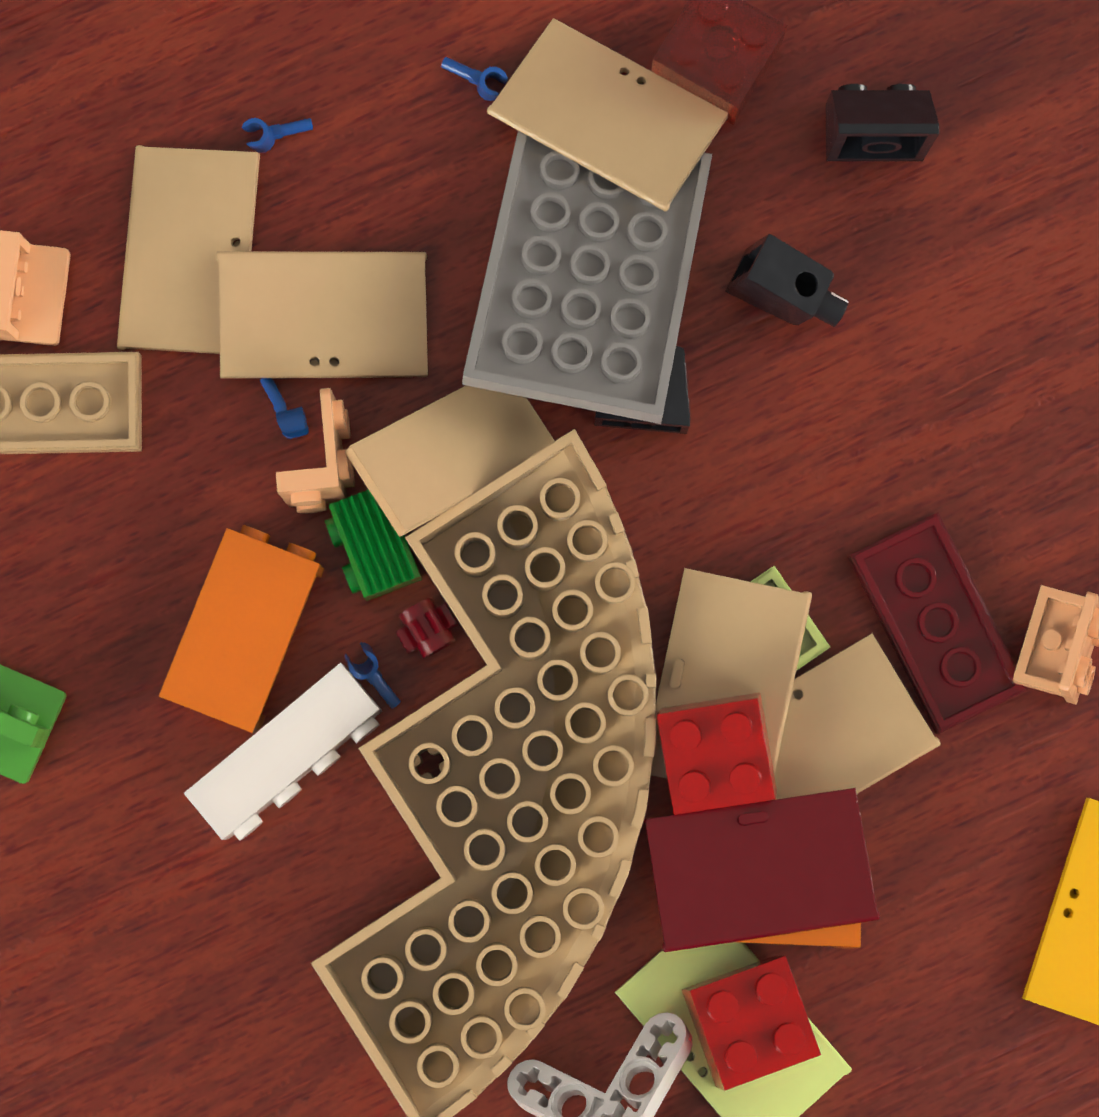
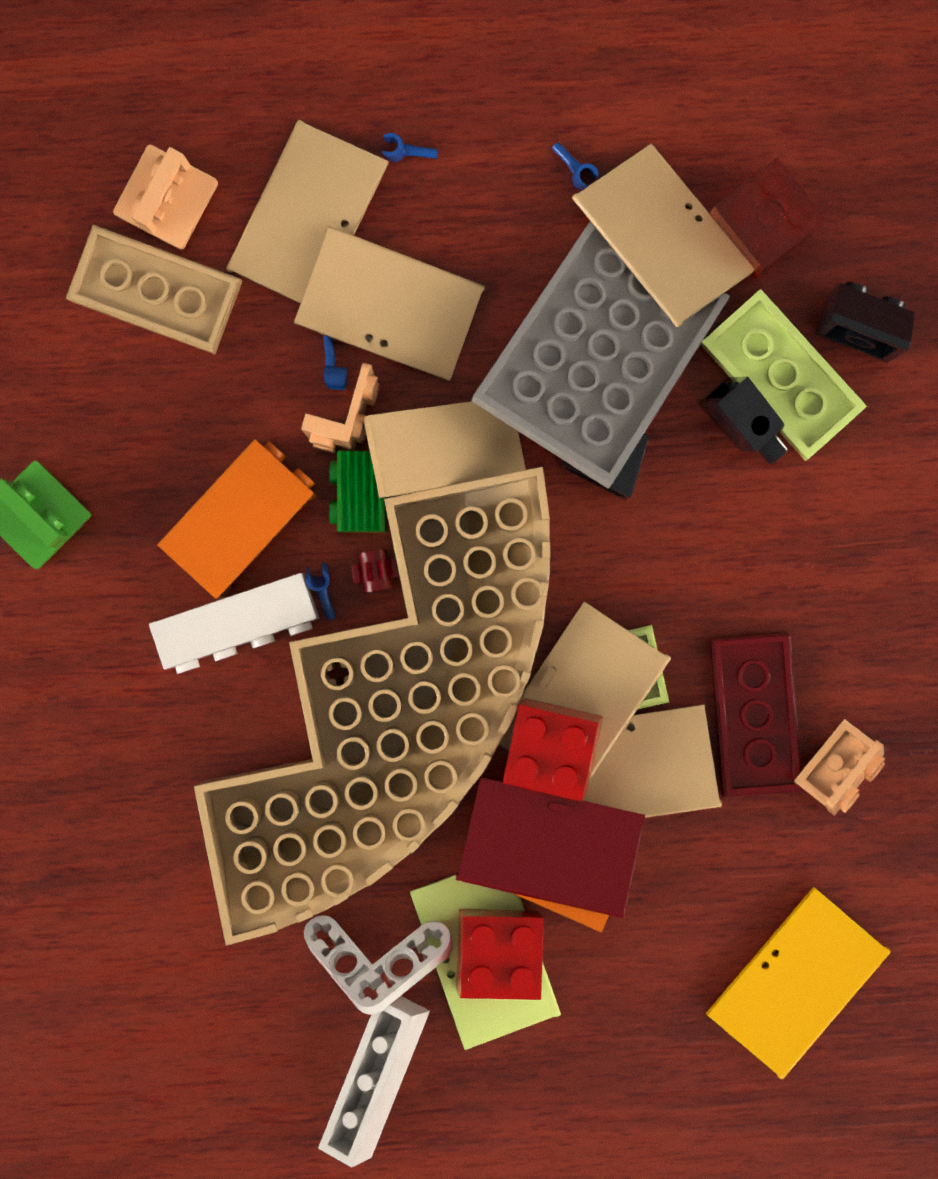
camera: 25 degrees right, 5 degrees up
(812, 212) = (787, 372): none -> yellowish green plate

